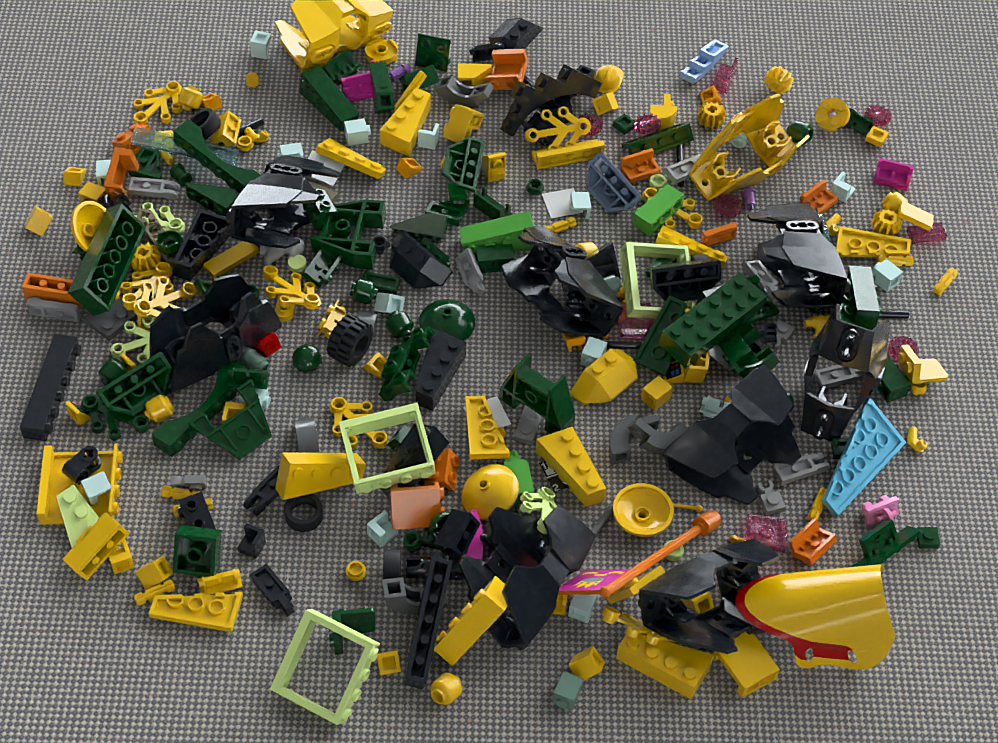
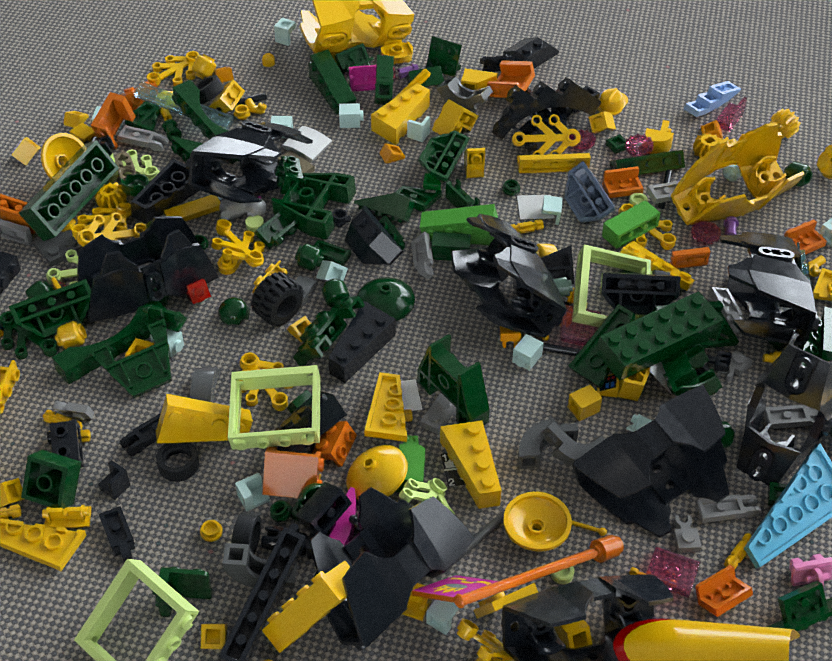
camera: 15 degrees right, 5 degrees down
(254, 361) = (179, 303): sand green brick -> none
(348, 157) = (335, 136): yellow wing -> none
(605, 378) = (533, 378): yellow wedge -> none

